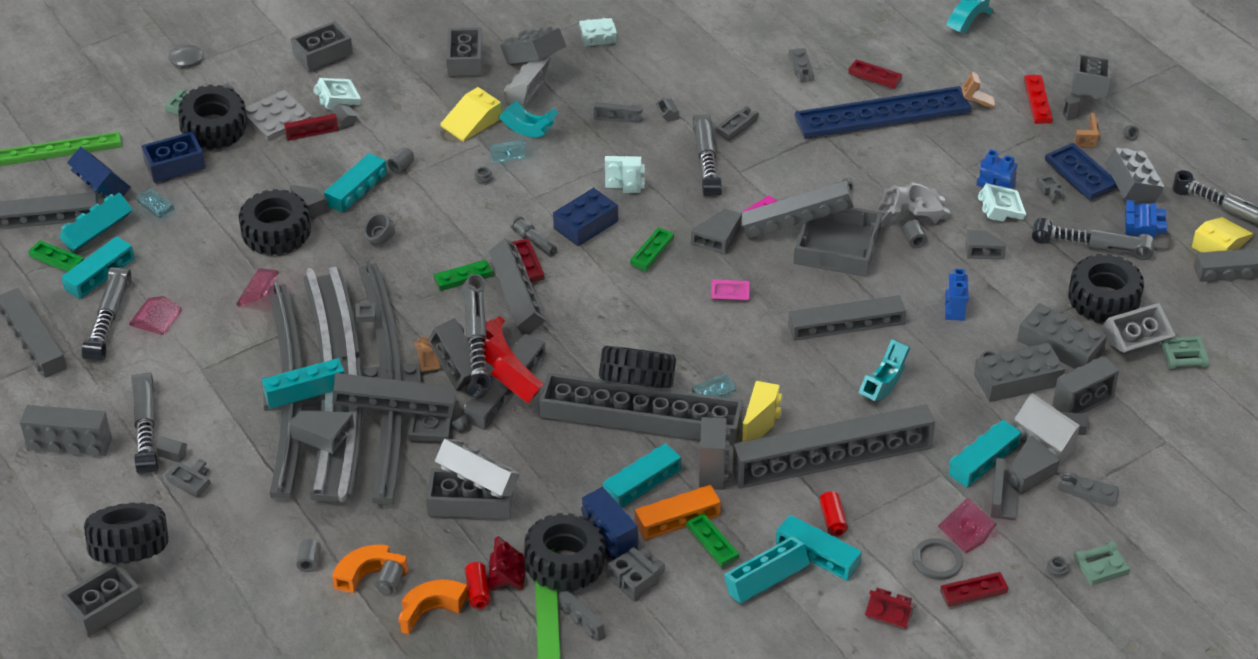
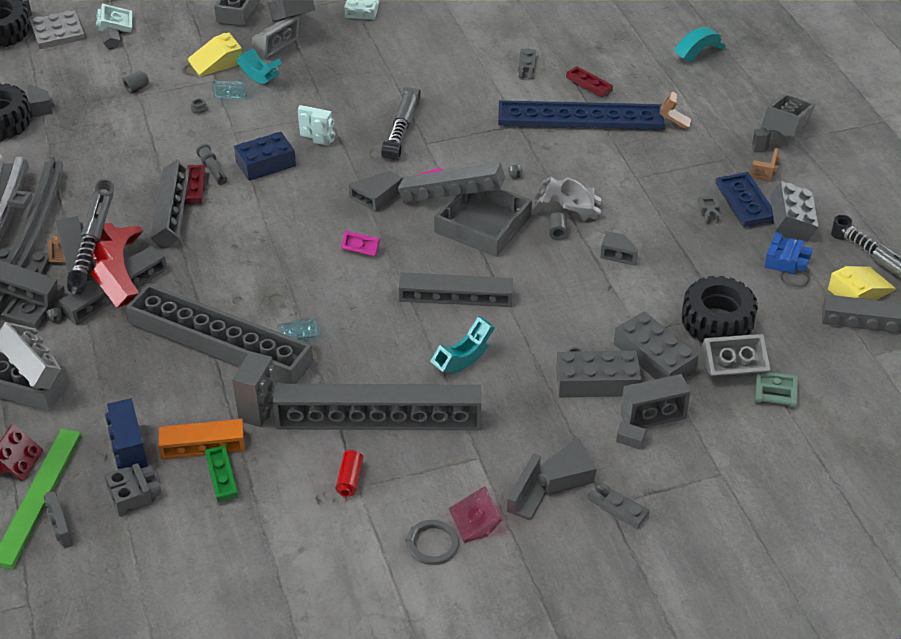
camera: 15 degrees right, 0 degrees up
(311, 127) = (77, 42): dark red plate -> none
(355, 182) = (86, 93): teal brick -> none
(379, 228) = (82, 133): dark grey hat -> none
(457, 276) = (136, 185): green plate -> none
(560, 570) = (75, 471): black tyre -> none
(617, 112) = (341, 74): dark grey hinge -> none
(637, 367) = (226, 294): black tyre -> none
(643, 475) = (187, 397): teal brick -> none
(652, 249) = (309, 194): green plate -> none
(668, 109) = (387, 79): dark grey piece -> none
(736, 123) = (443, 101): dark grey hinge -> none
(762, 410) = (324, 360): light yellow slope -> none
(766, 569) = (253, 514): teal brick -> none
(821, 547) = (318, 503): teal brick -> none
(888, 608) = (357, 580): dark red bracket -> none
(956, 295) = (568, 289): blue hips -> none
(974, 589) = (451, 581): dark red plate -> none
(982, 454) = (518, 448): teal brick -> none
(997, 171) = (660, 185): blue hips -> none
(1001, 202) = (653, 212): light aqua plate -> none
(1038, 99) = (733, 129): red plate -> none
(1048, 427) = (598, 435): light grey slope -> none
(1057, 566) = (550, 572): dark grey plate -> none
(1104, 568) = (600, 591): sand green plate -> none
(1133, 130) = (813, 172): dark grey hinge -> none
(1139, 246) = (772, 278): piece -> none

